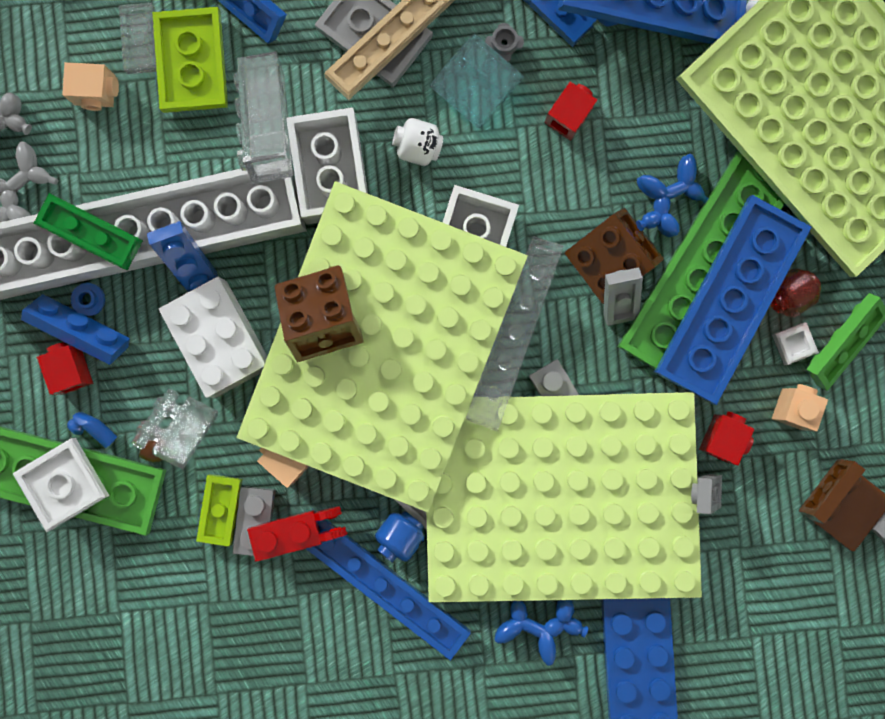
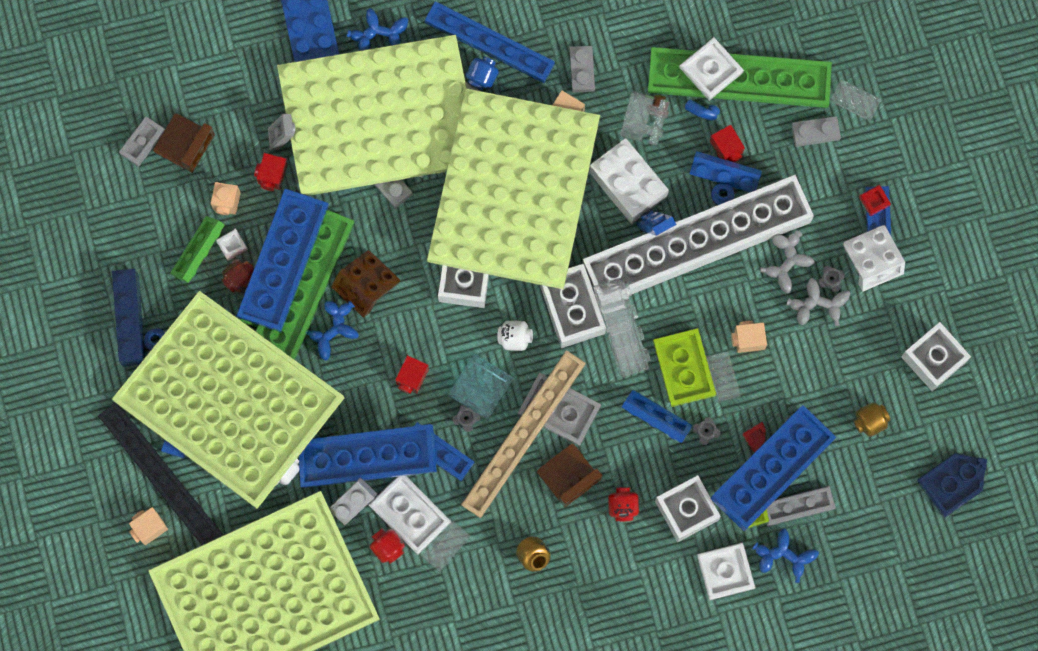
camera: 170 degrees right, 10 degrees down
(88, 232) = (723, 229): green tile -> none
(219, 510) = (606, 72): lime plate -> none
(292, 533) = (552, 63): red hinge -> none
(317, 314) = (559, 197): reddish brown bracket -> none
(514, 334) = (425, 216): clear tile -> none
(622, 296) = (358, 251): light grey plate -> none

